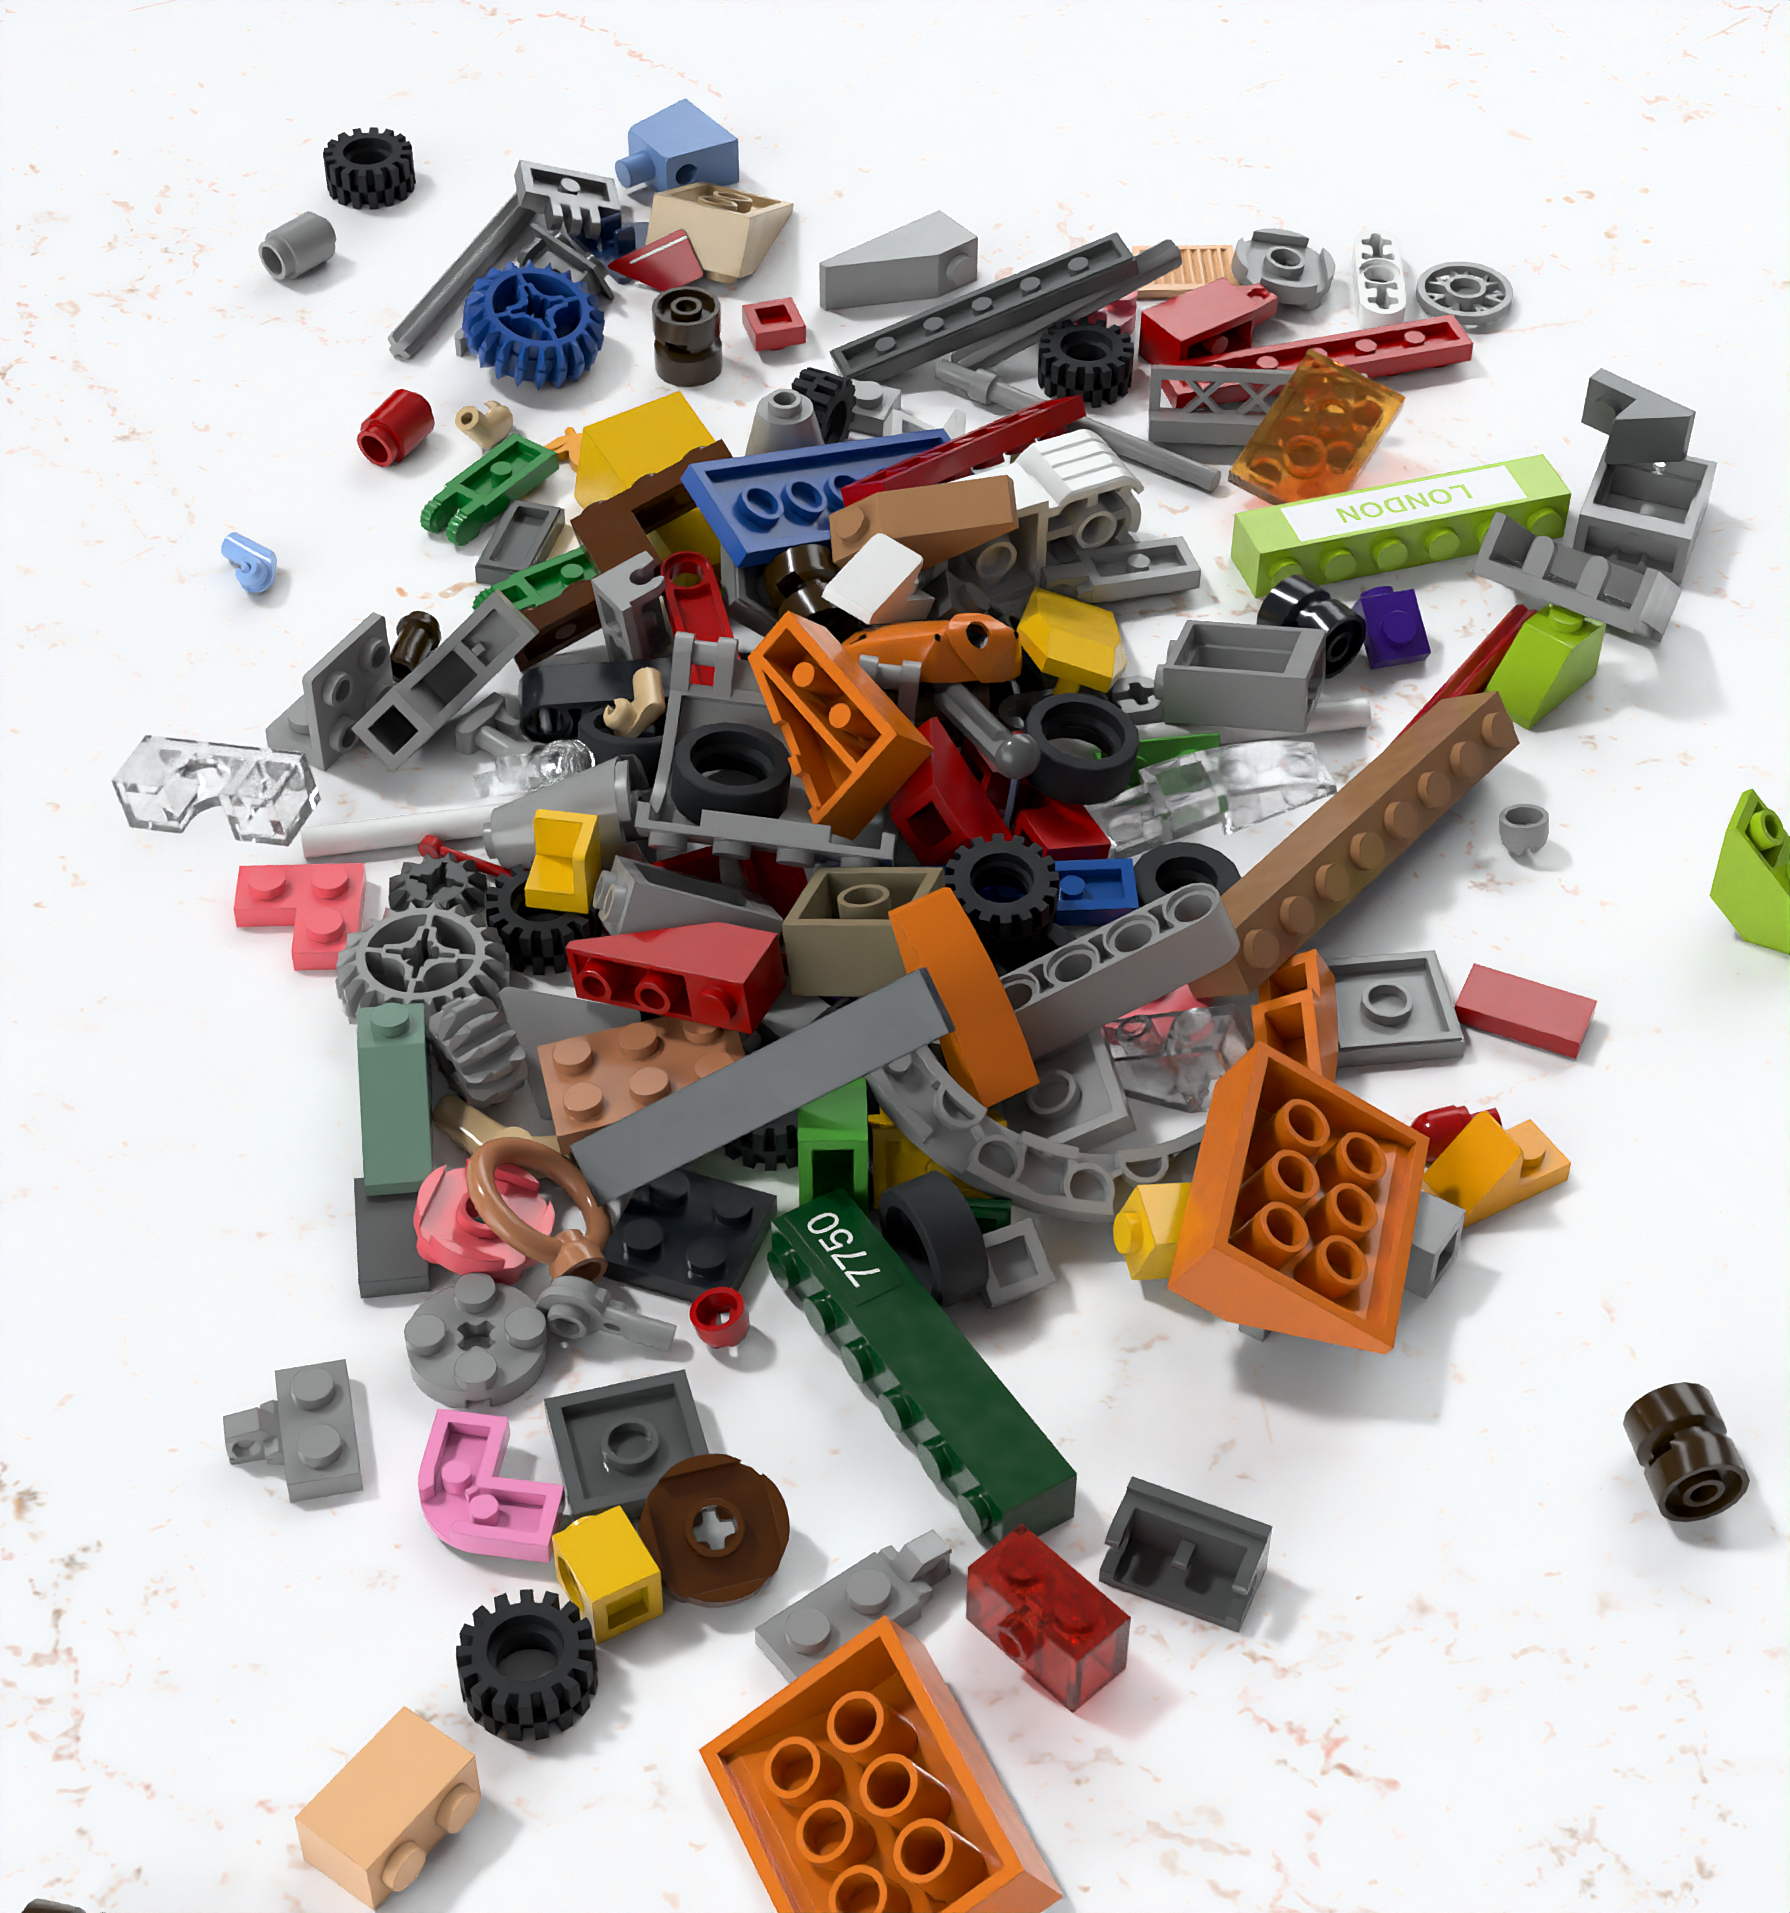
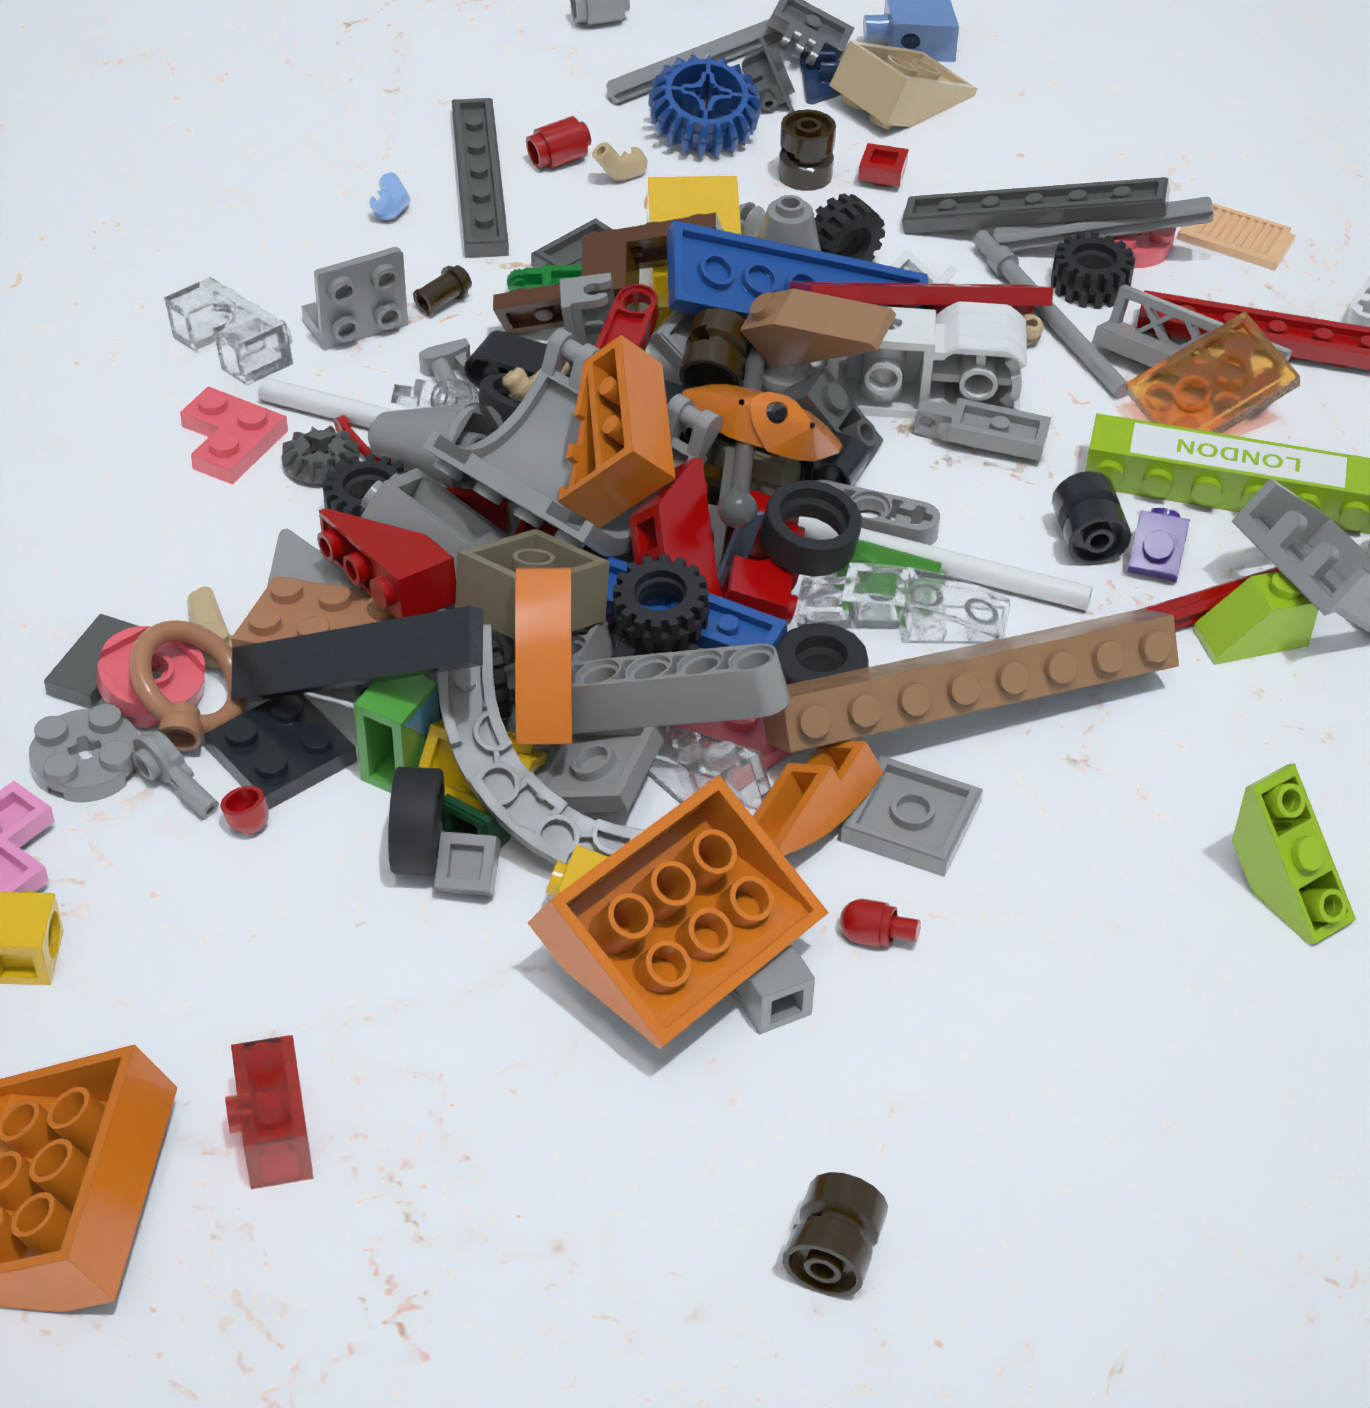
camera: 30 degrees right, 0 degrees up
(331, 502) = (479, 178): none -> dark grey tile
(395, 1098) = (167, 565): sand green slope -> none
(421, 959) = (251, 498): light grey gear -> none
(445, 681) = (406, 327): light grey arch -> none
(477, 1051) = (236, 562): light grey gear -> none
(488, 488) = (582, 203): green hinge -> none
(564, 862) = (397, 453): yellow panel -> none
(622, 1440) = (114, 866): dark grey plate -> none
(662, 263) = (838, 96): red sticker -> none
(730, 748) = (540, 423): black tyre -> none
(736, 1494) = (93, 914): reddish brown plate -> none
(849, 1603) = (174, 1042): light grey hinge -> none
(873, 406) = (906, 237): light grey plate -> none
(881, 584) = (752, 358): white slope -> none
(901, 265) = (1010, 154): light grey slope -> none
(921, 1369) = (341, 909): dark green brick -> none
(1072, 641) = (894, 459): yellow piece -> none
(1186, 1554) = (410, 1120): dark grey hinge -> none
(1204, 322) = (1212, 272): red hinge -> none
(1242, 676) = (999, 531): light grey window -> none
(1284, 266) = (1290, 257): light grey plate -> none
(1495, 1167) = (875, 967): light orange slope -> none
(1524, 828) = (1133, 730): light grey hinge -> none
(1525, 1010) = (1018, 863): tile -> none

